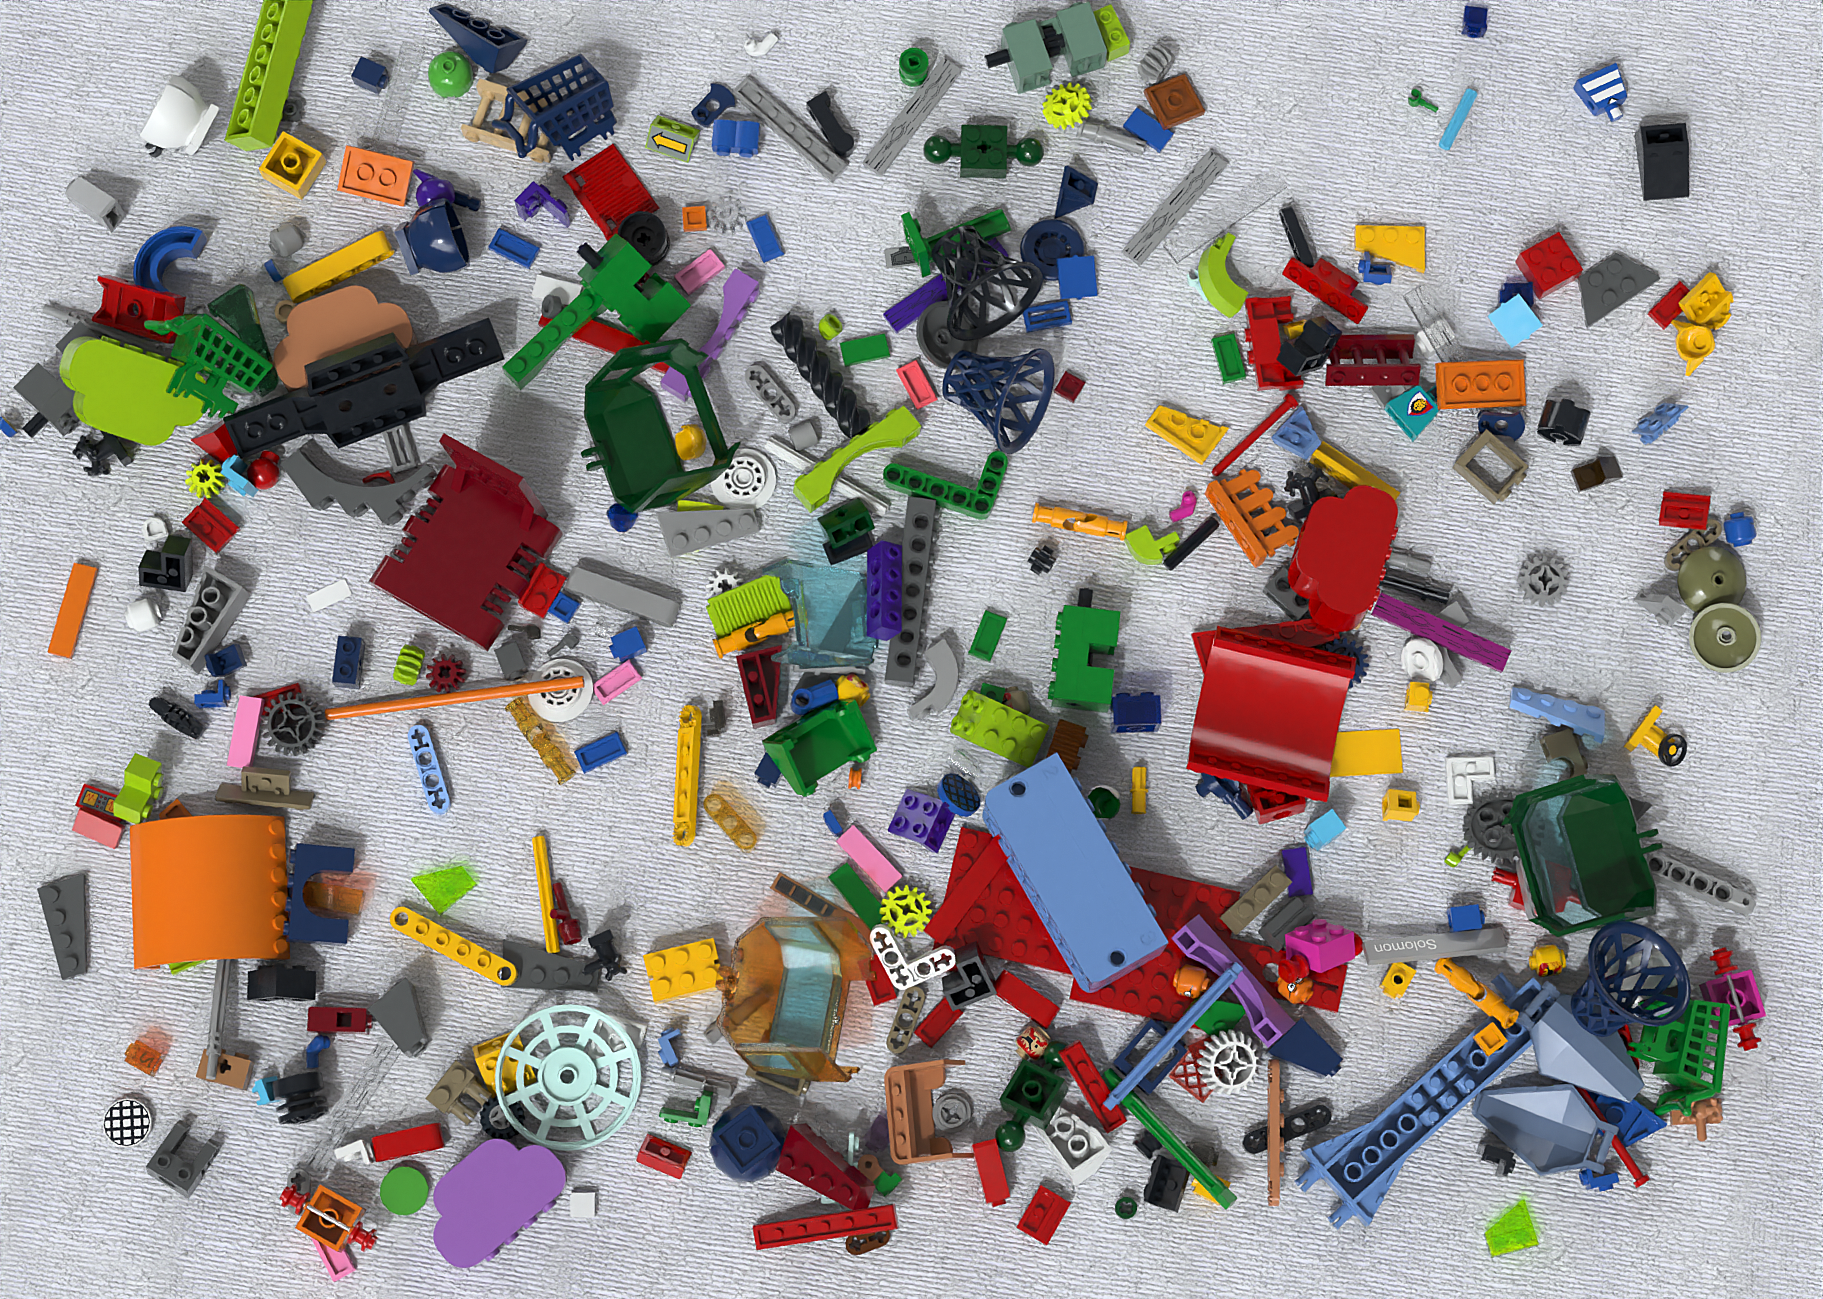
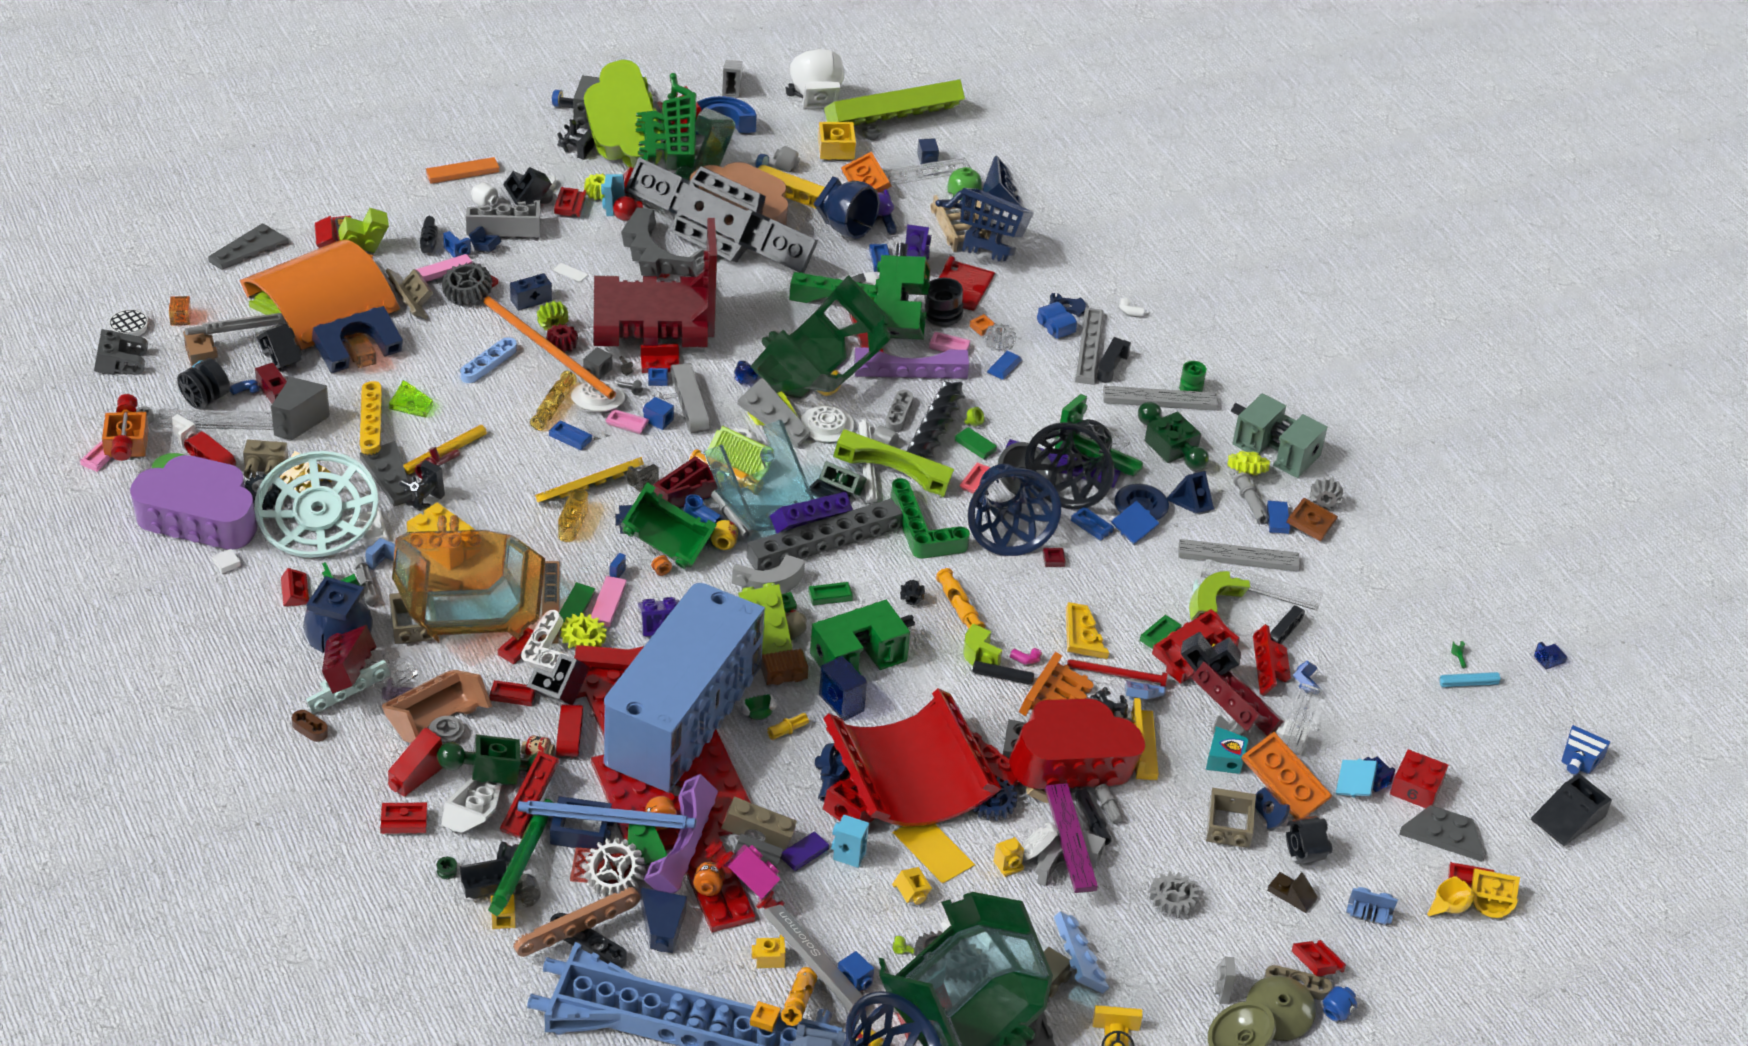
camera: 55 degrees right, 35 degrees down
(672, 138) = (1025, 292): panel -> none
(825, 1226) = (302, 687): red tile -> none
(870, 1168) = (364, 706): leg -> none
(917, 1005) = (515, 676): dark tan beam -> none
(1112, 33) = (1322, 462): lime brick -> none
(1395, 243) = (1340, 686): yellow wing -> none

